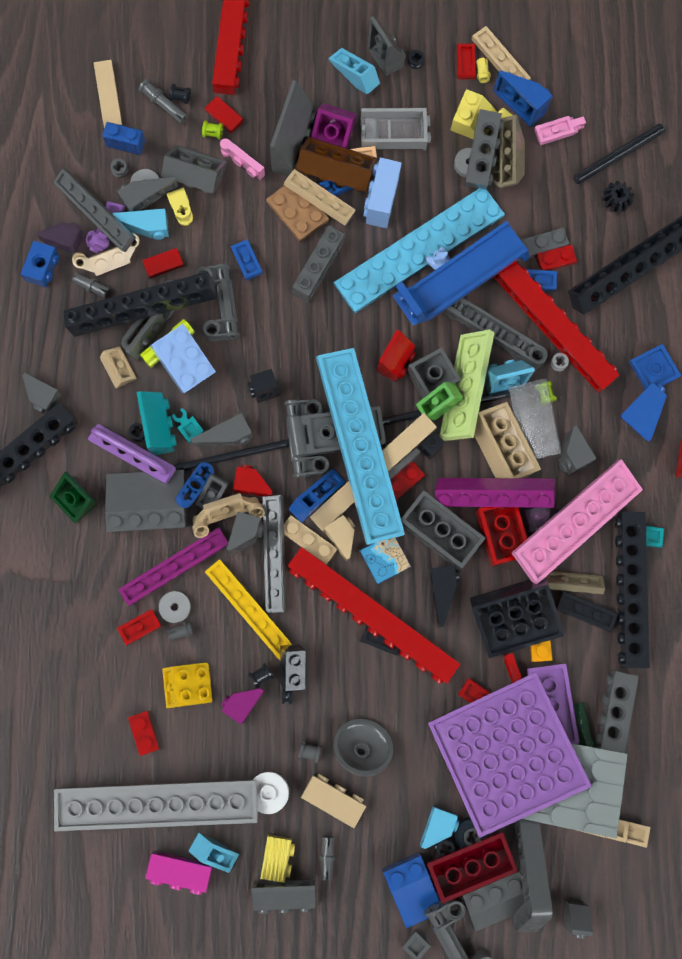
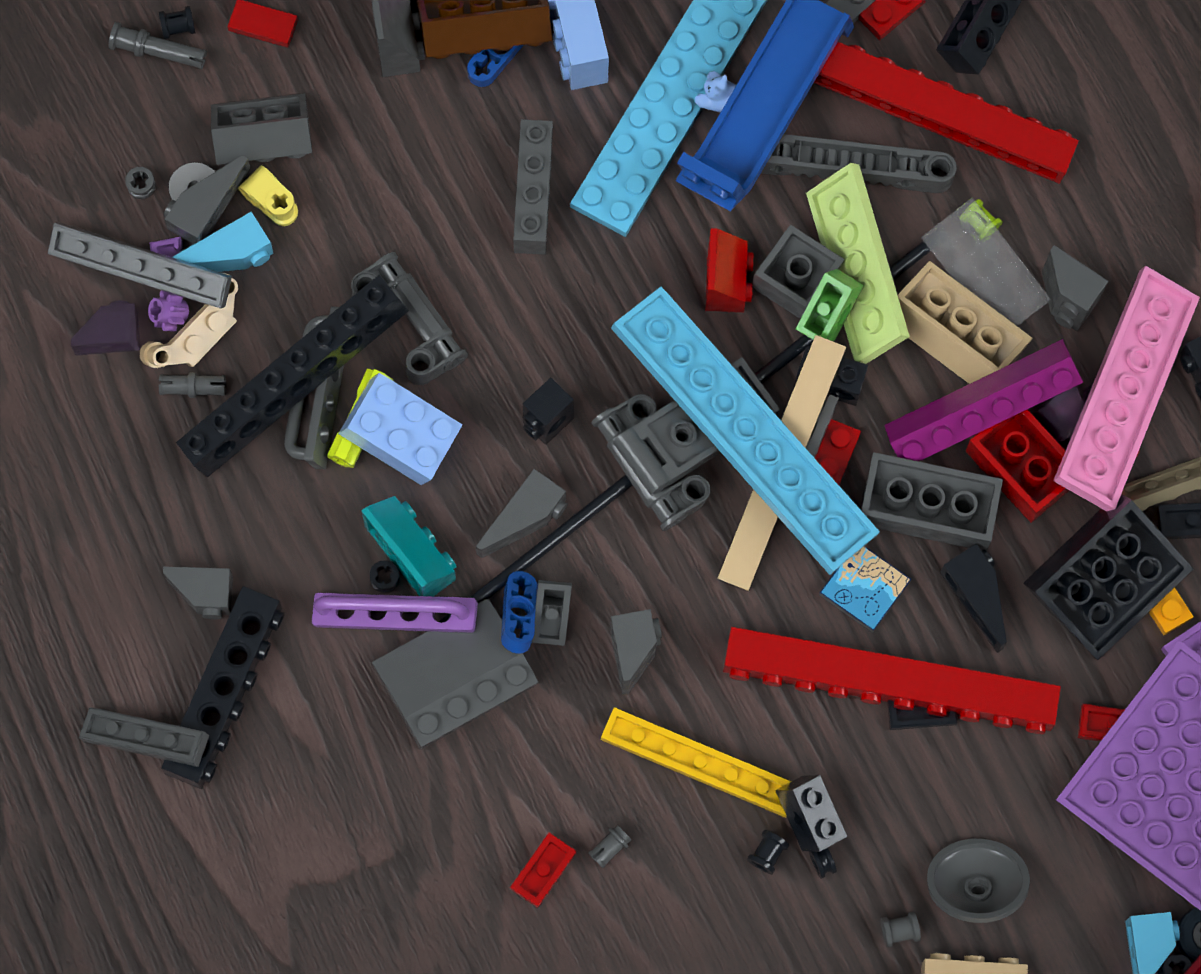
camera: 20 degrees left, 5 degrees down
(40, 253) = (86, 373): blue brick -> none
(72, 498) = (337, 723): dark green slope -> none
(107, 92) = (62, 76): tan tile -> none
(117, 367) = (299, 492): tan slope -> none
(123, 138) = (126, 132): blue brick -> none
(163, 263) = (287, 298): red tile -> none
(173, 567) = (548, 753): magenta plate -> none
(181, 613) = (576, 829): light grey piece -> none
(187, 685) = (661, 921): yellow bracket -> none
(189, 427) = (462, 532): teal plate -> none
(212, 130) = (258, 55): lime bush -> none
(224, 509) = (581, 629): tan plate -> none
(240, 704) = (760, 909): magenta slope -> none
(242, 159) = (329, 79): bright pink plate -> none
(246, 260) = (416, 232): blue plate -> none
(250, 482) = (602, 568): red slope -> none
(274, 554) = (694, 661): tile -> none
(297, 213) = (455, 118): medium nougat plate -> none
(309, 540) = (724, 612): tan plate -> none
(316, 495) = (712, 540): blue slope -> none
(319, 197) = (483, 82): tan plate -> none
(341, 535) = (782, 583): tan slope -> none
(507, 375) = (911, 219): medium azure slope -> none
(512, 667) = (1138, 655): red tile -> none
(546, 279) = (893, 45): blue plate -> none
(559, 356) = (968, 167): light grey bush -> none
(646, 410) = (1144, 176): blue slope -> none
(655, 367) = (1126, 106): blue plate -> none

